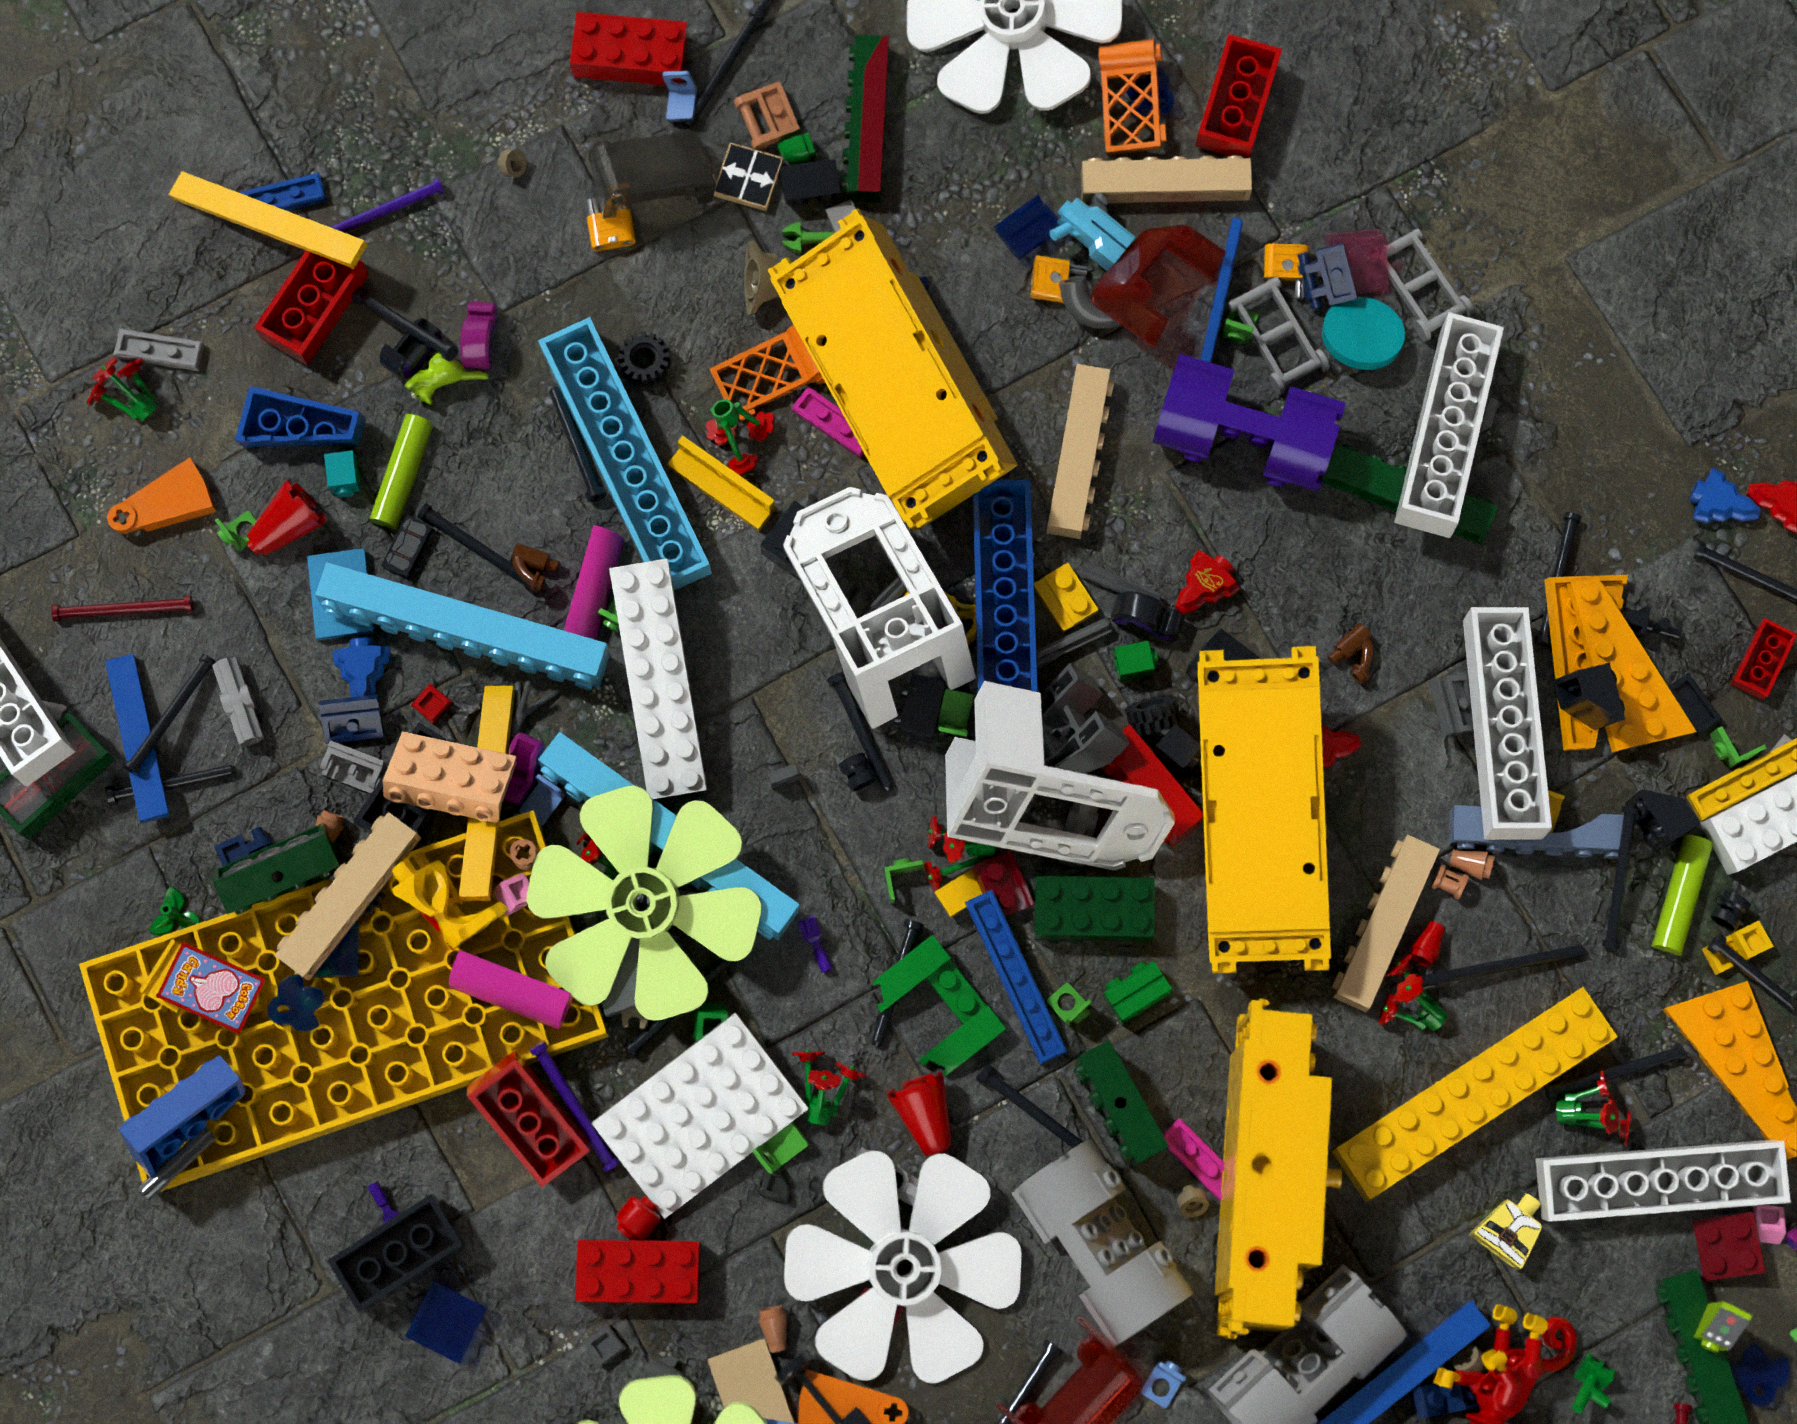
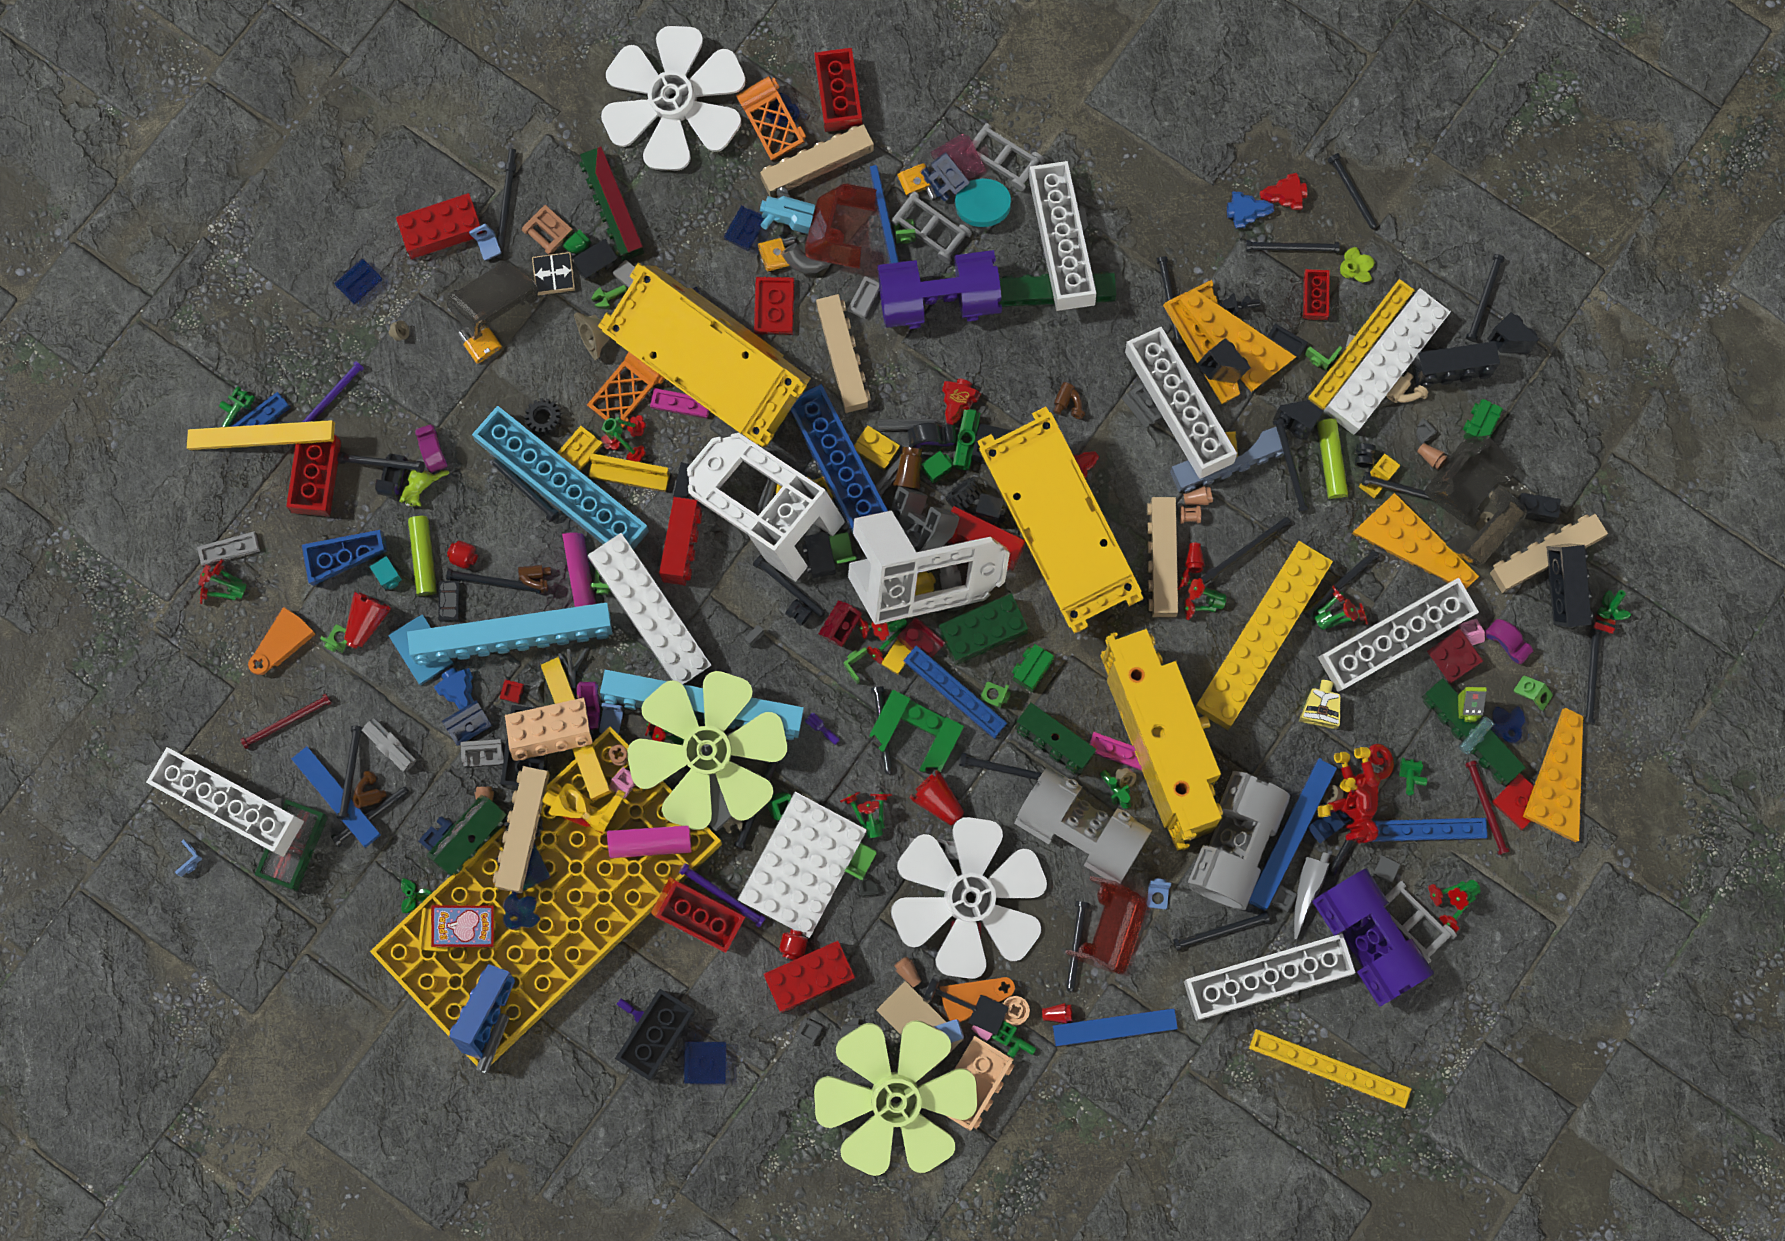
camera: 25 degrees left, 0 degrees up
(169, 757) = (370, 797): none -> reddish brown plant
(262, 166) = (233, 410): none -> green arm
(452, 493) = (462, 554): none -> red head
(490, 75) = (358, 281): none -> clear blue plate
(670, 421) = (579, 448): none -> yellow plate
(744, 605) = (680, 541): none -> red brick
(904, 812) = (840, 623): none -> dark red brick
(1018, 347) = (774, 305): none -> red tile
(1041, 811) = (924, 583): none -> yellow head
(1095, 646) = (909, 468): none -> reddish brown plant
(1143, 390) = (864, 297): none -> light grey tile
(1174, 1222) = (1120, 795): none -> green arm
(1201, 628) = (968, 429): none -> green piece
(1707, 1373) = (1476, 735): none -> clear light blue pin

